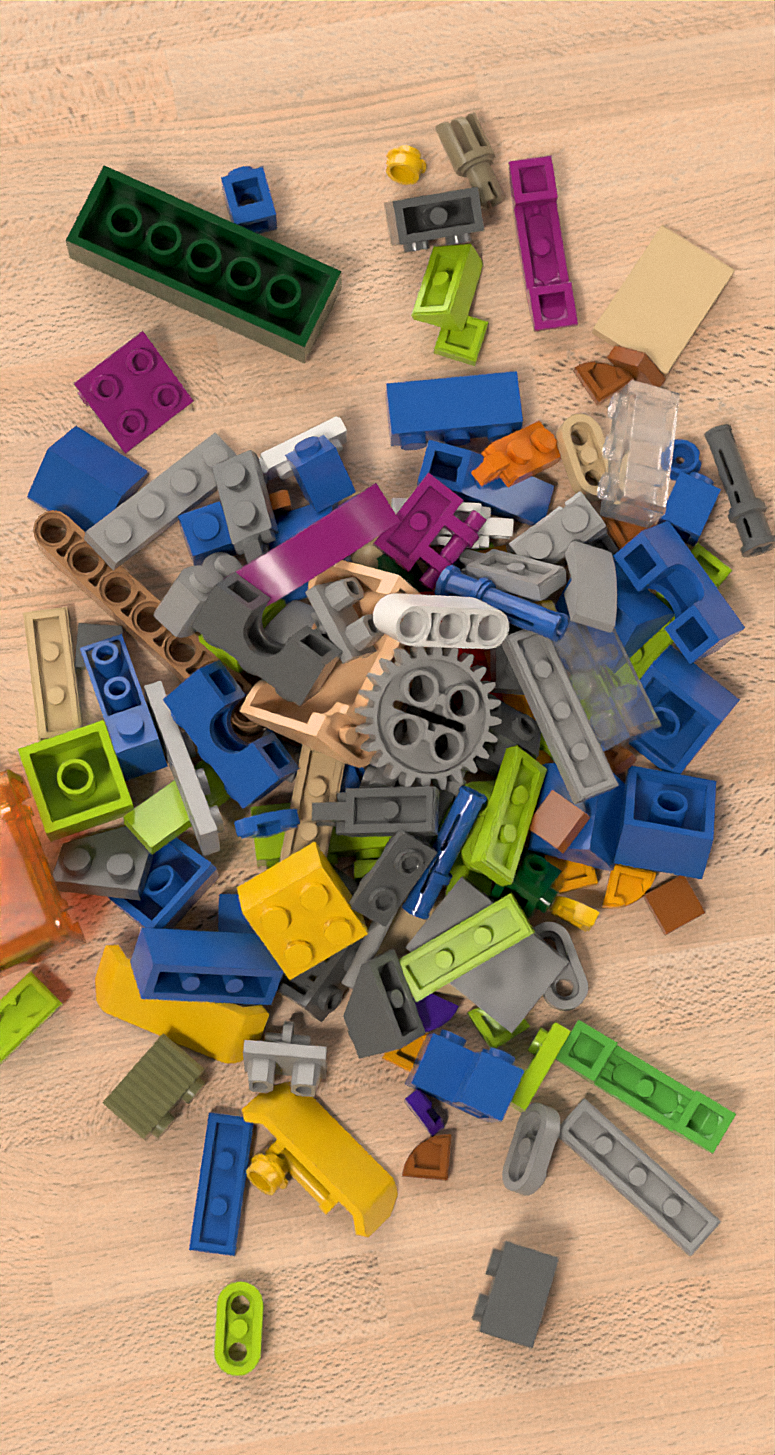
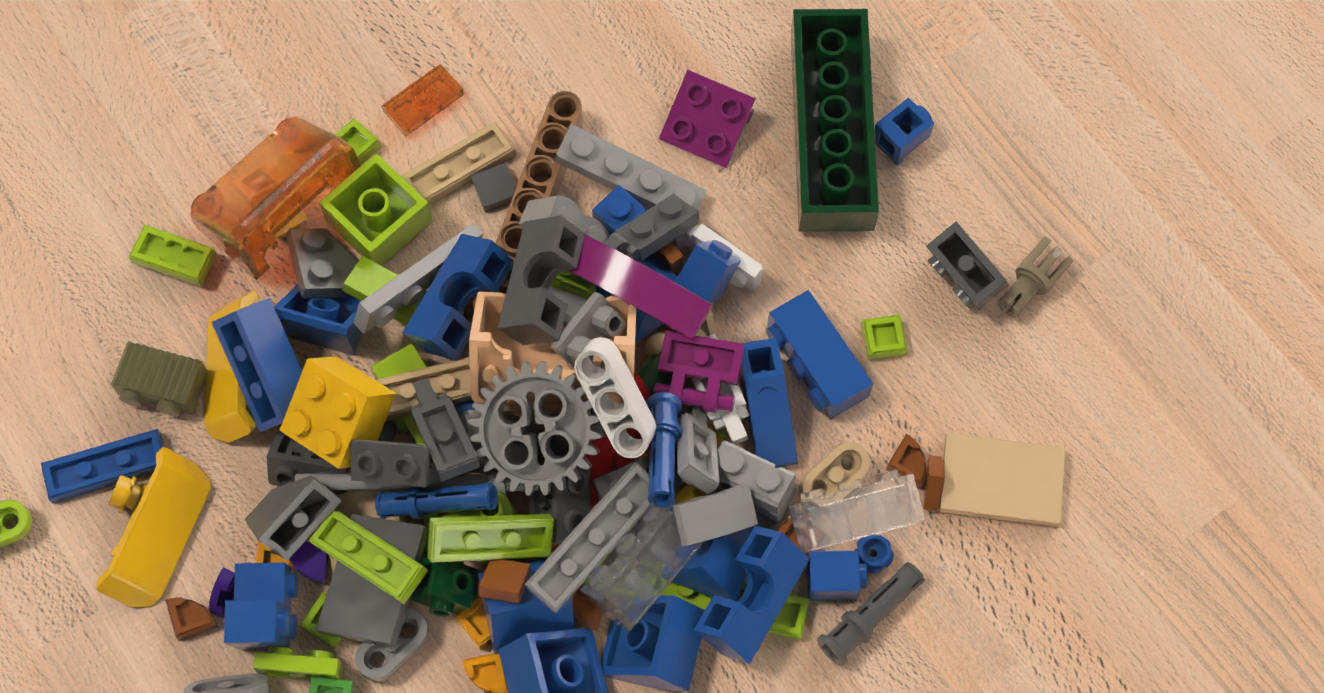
camera: 70 degrees right, 10 degrees down
(84, 478) = (624, 114): blue slope -> none
(124, 709) = (451, 216): blue slope -> none
(267, 824) = (396, 354): blue tile -> none
(287, 1056) = (225, 465): light grey hips -> none
(405, 165) = (1000, 230): yellow plate -> none
(448, 286) = (918, 307): lime slope -> none
(518, 456) = (802, 416): orange hinge -> none
(541, 244) = (995, 361): magenta slope -> none
(574, 913) = (443, 641): yellow tile -> none

